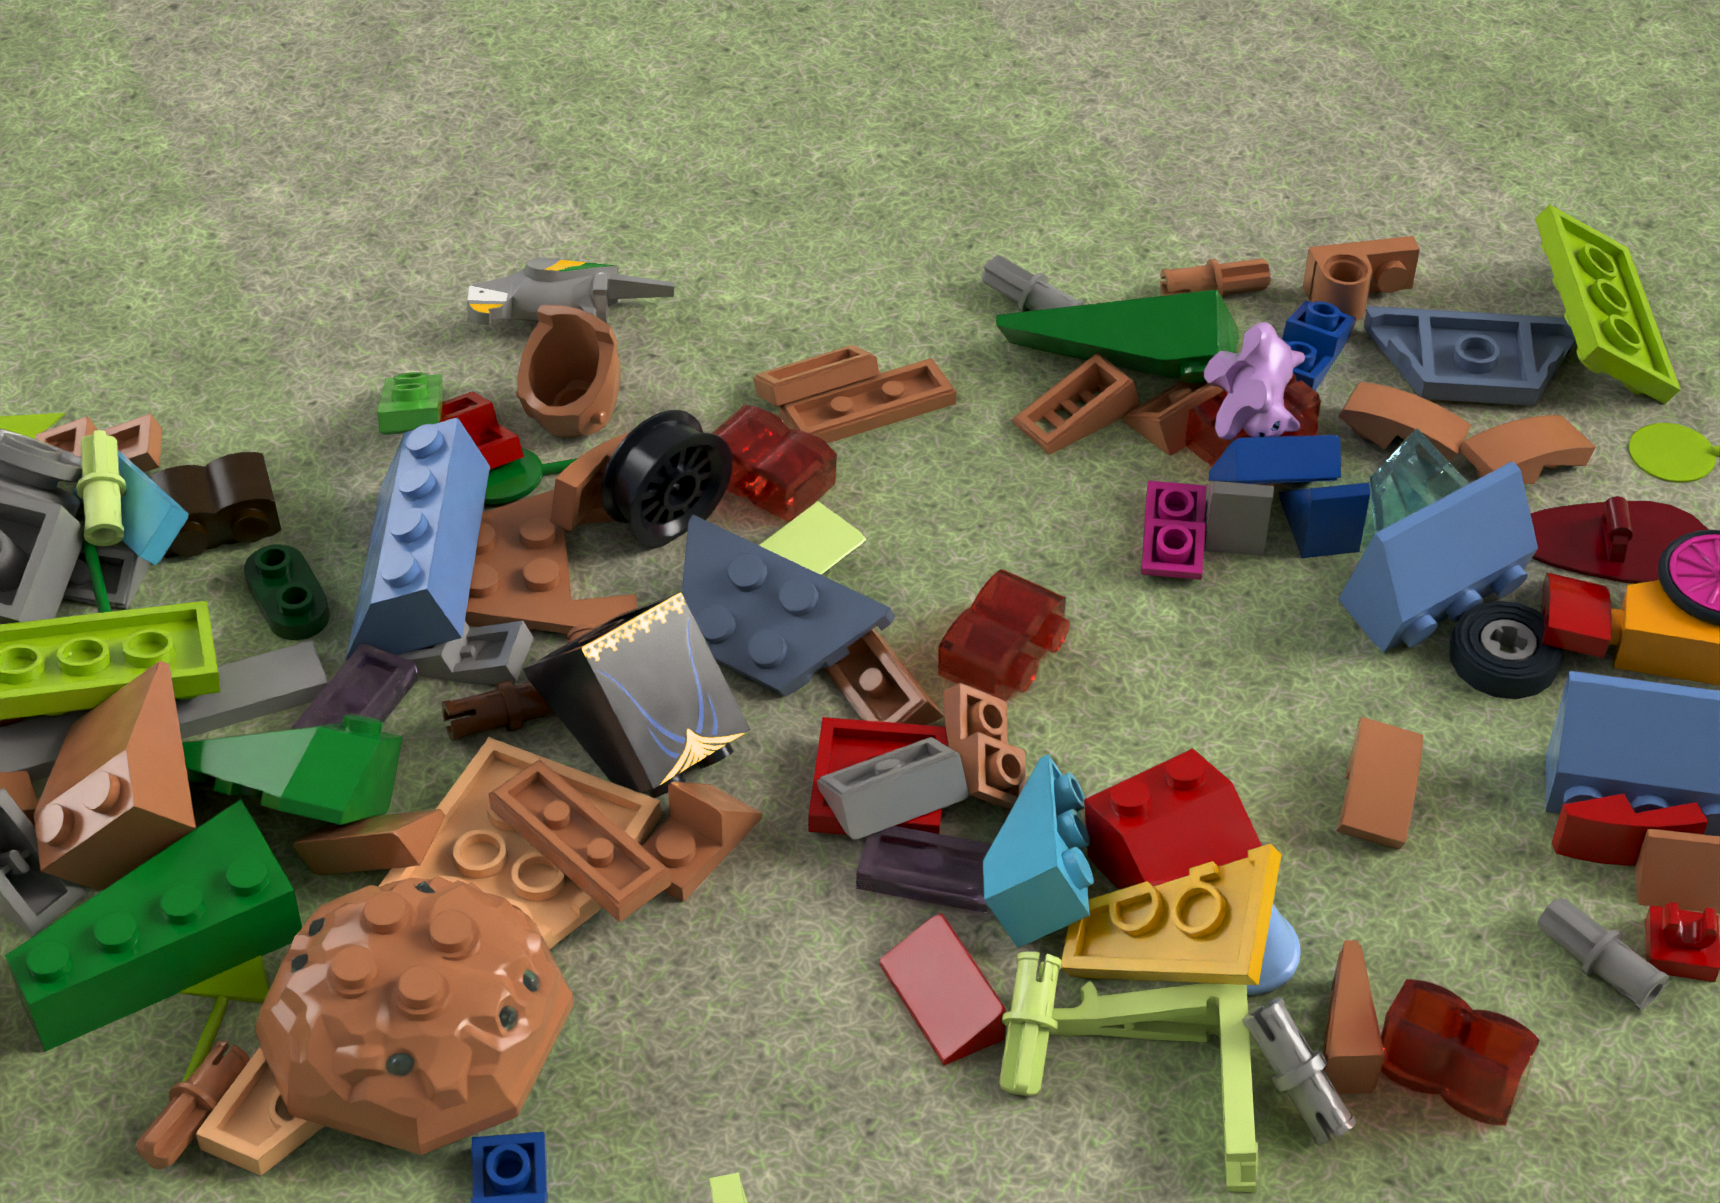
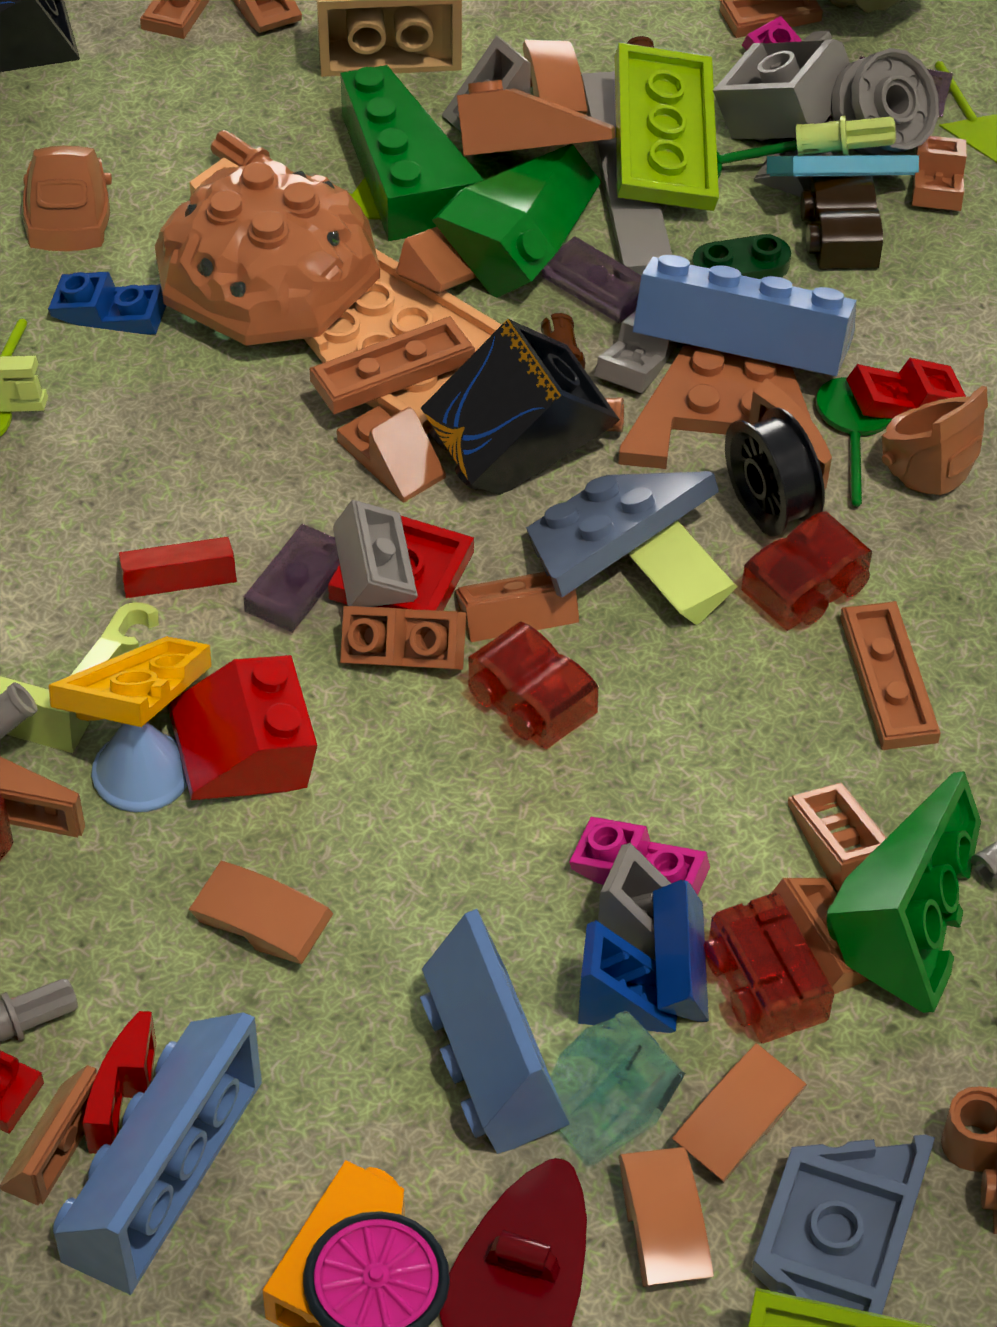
camera: 105 degrees right, 5 degrees up
(410, 402) = (924, 331): bright green plate -> none
(815, 375) = (930, 636): nougat tile -> none
(1029, 1024) = (113, 590): yellowish green axle -> none
(1038, 861) = (253, 622): medium azure slope -> none
(1254, 385) = (777, 927): lavender animal -> none
(1320, 334) = (904, 1084): blue slope -> none
(1486, 668) = (399, 1116): black bush -> none
(1576, 615) = (423, 1162): red slope -> none

